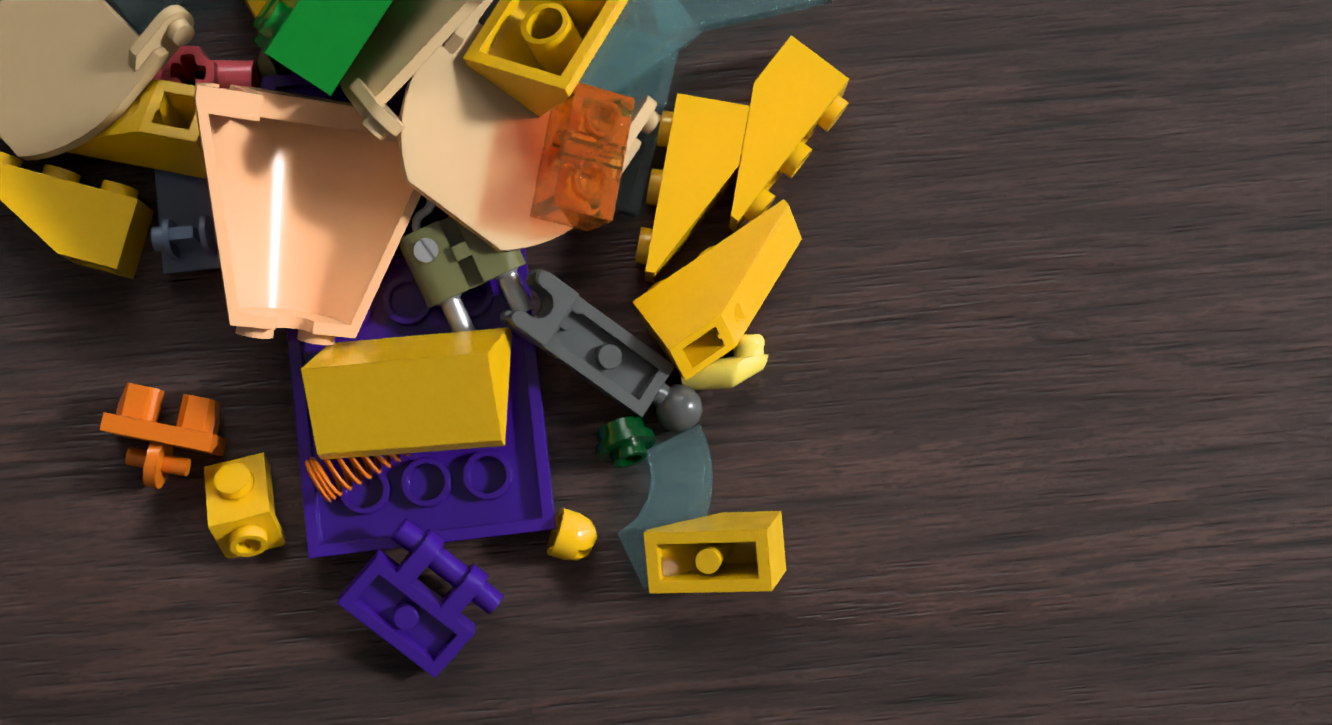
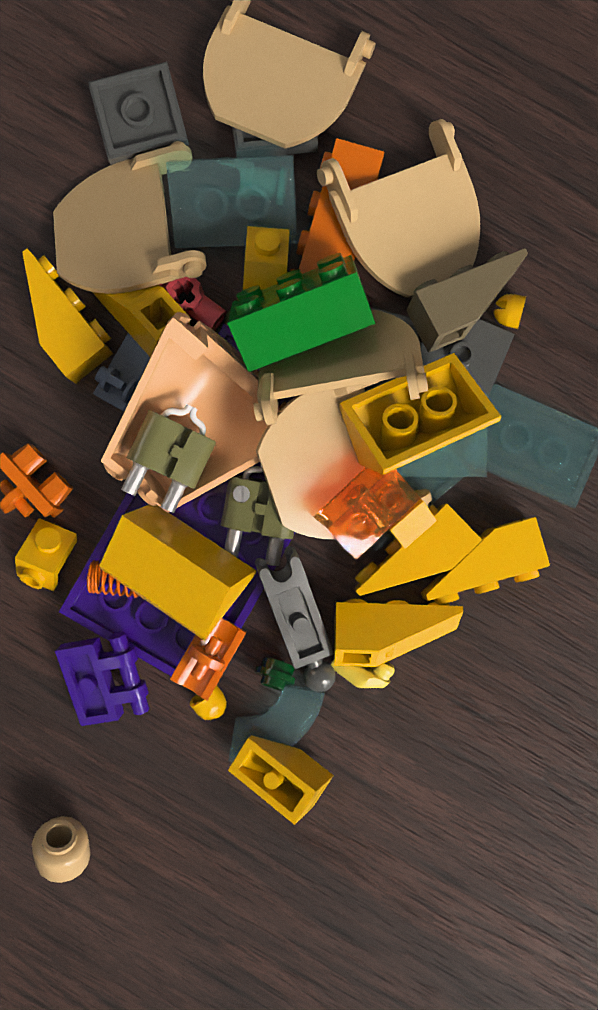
camera: 40 degrees right, 5 degrees up
(306, 258) = (169, 451): none -> olive piece
(527, 471) = (207, 660): none -> orange hips
(650, 142) = (412, 524): none -> yellow tile

